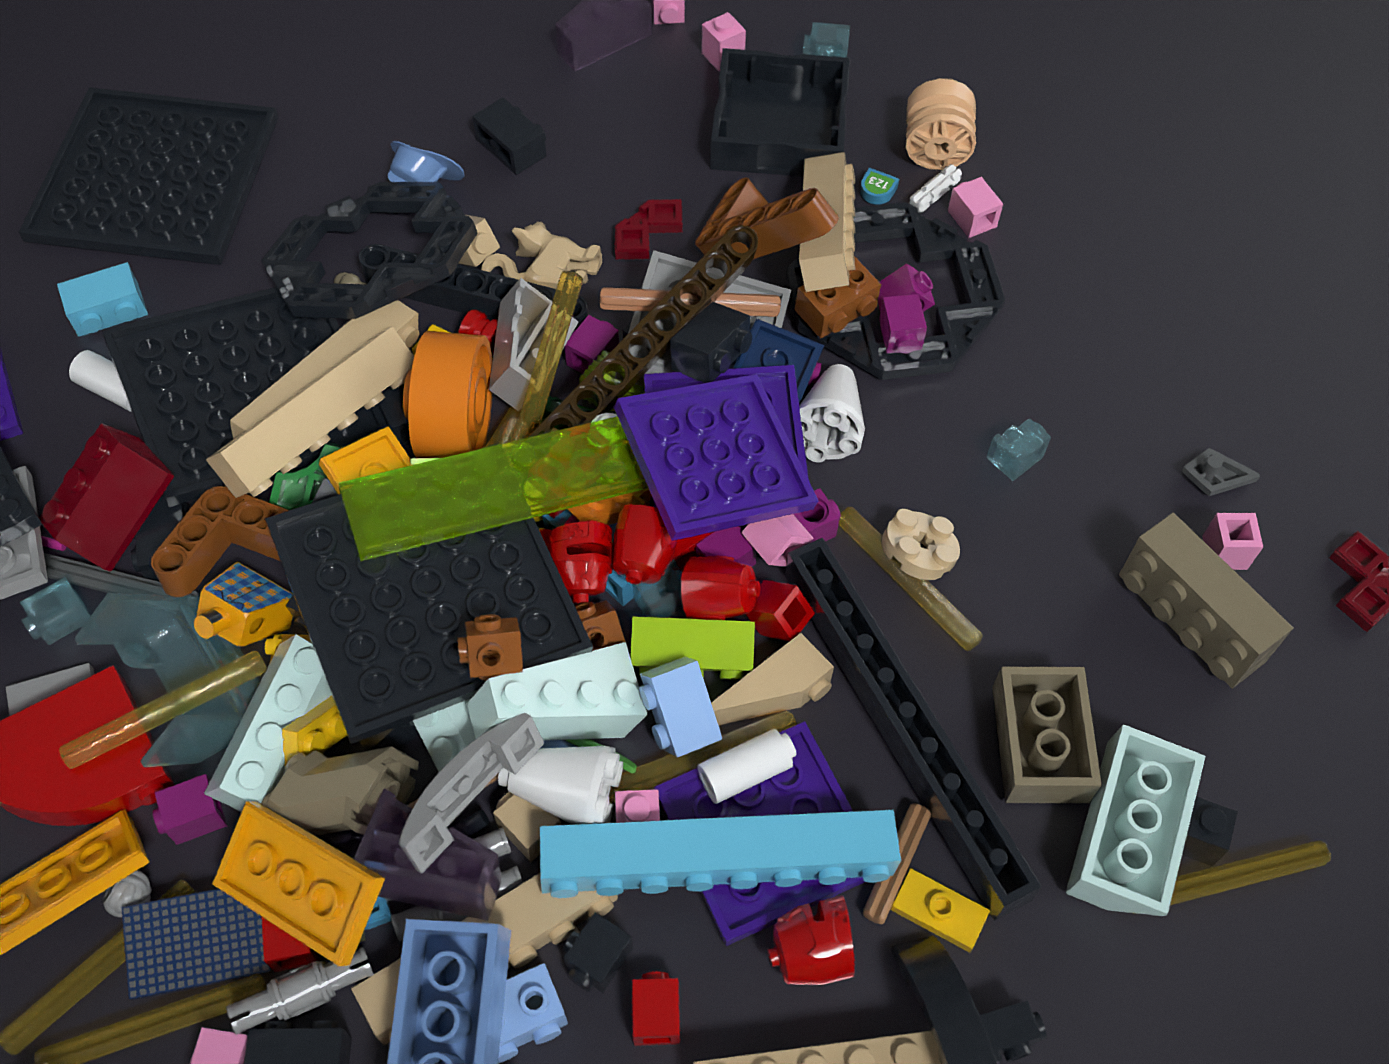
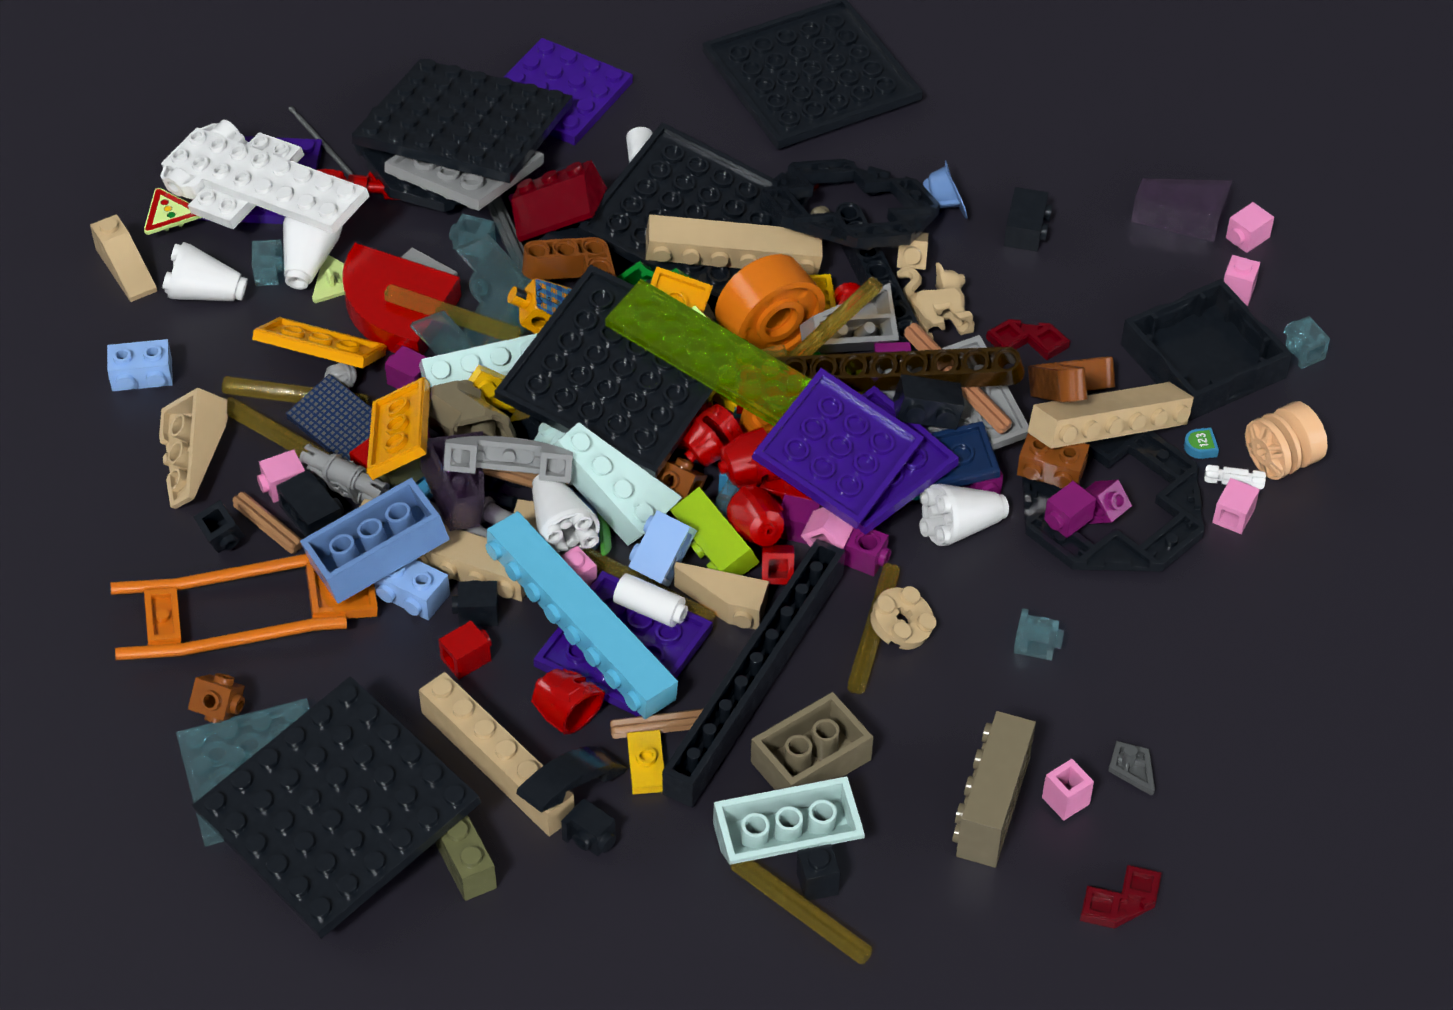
camera: 55 degrees right, 10 degrees down
(102, 299) = (694, 113): medium azure brick -> none
(311, 413) = (684, 246): tan brick -> none
(491, 646) = (602, 414): dark orange brick -> none

